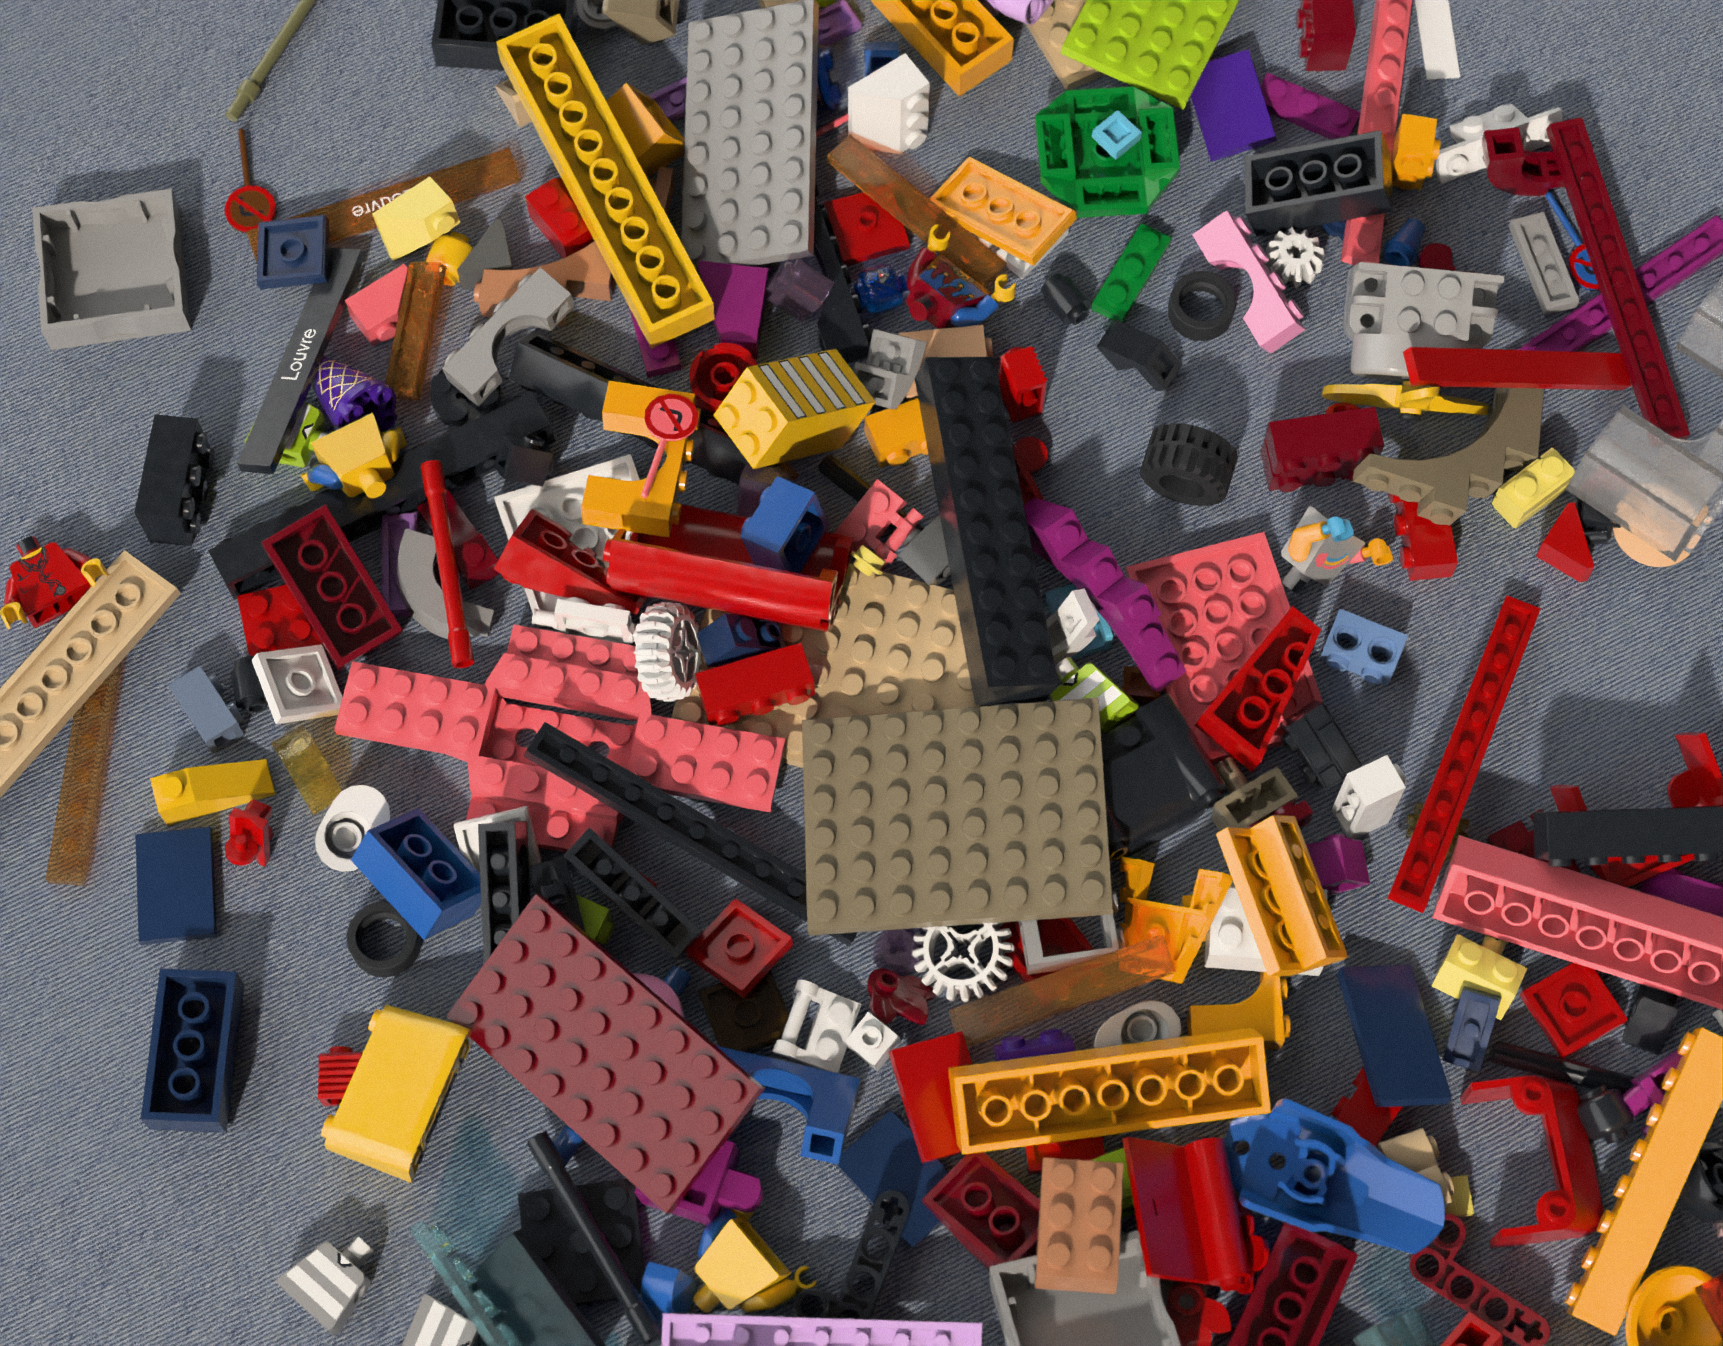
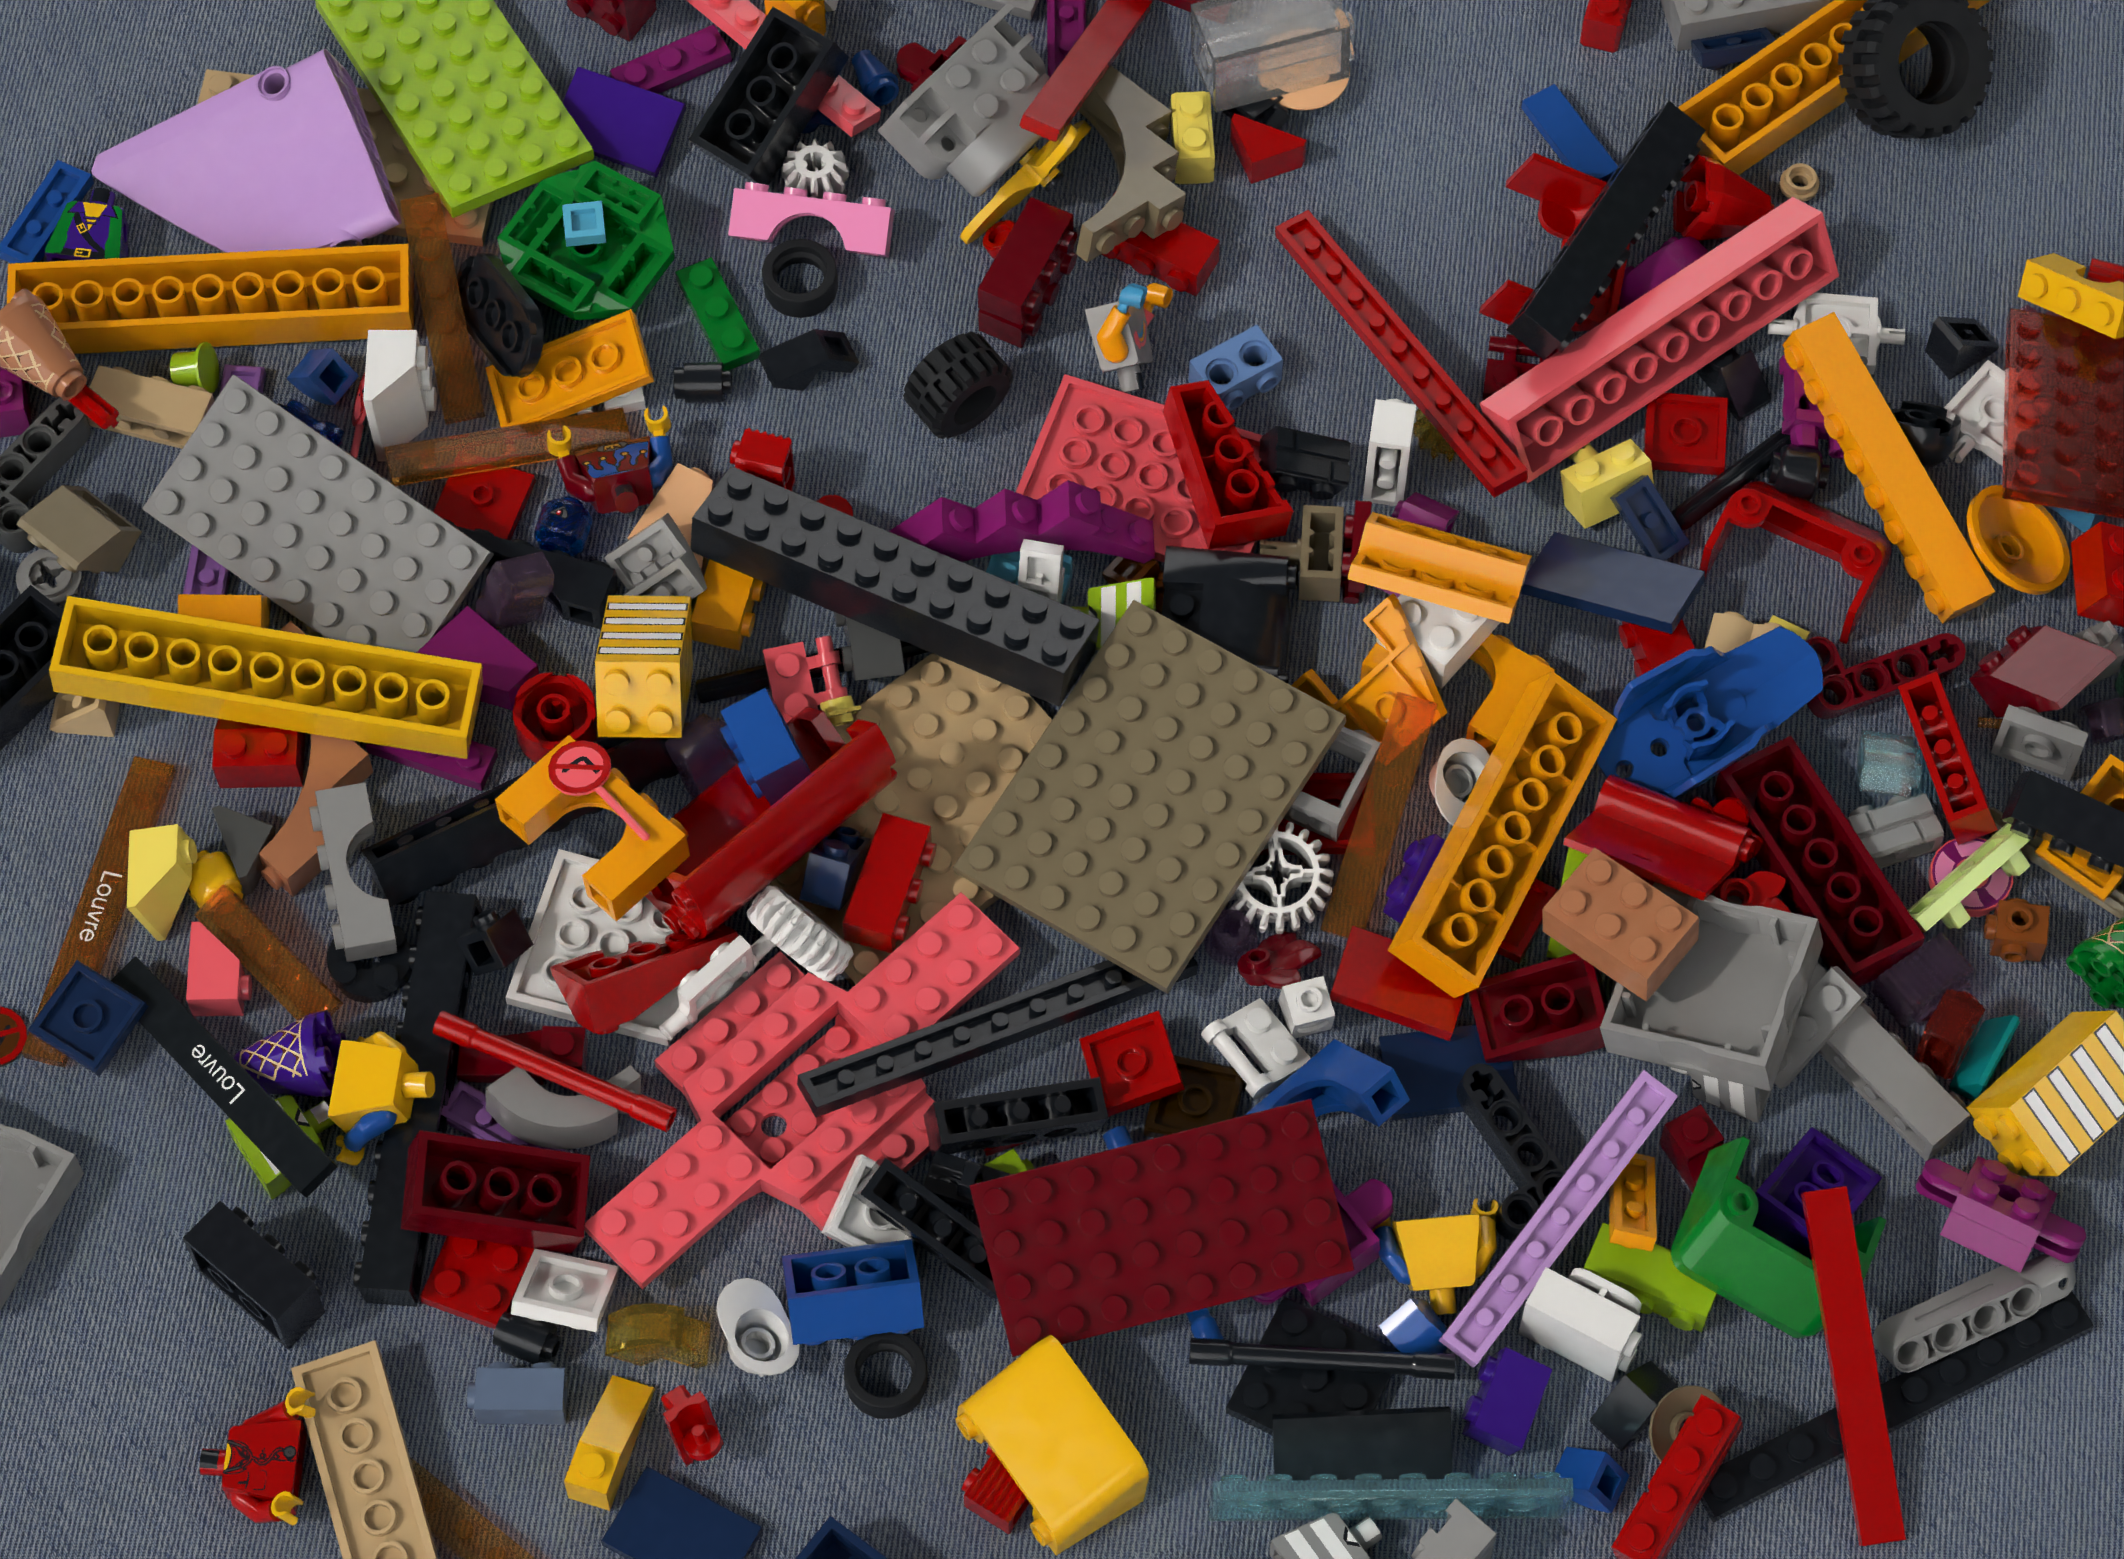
camera: 55 degrees left, 5 degrees down
(988, 97) = (442, 308): none -> clear orange plate
(1005, 133) = (500, 315): none -> black tile

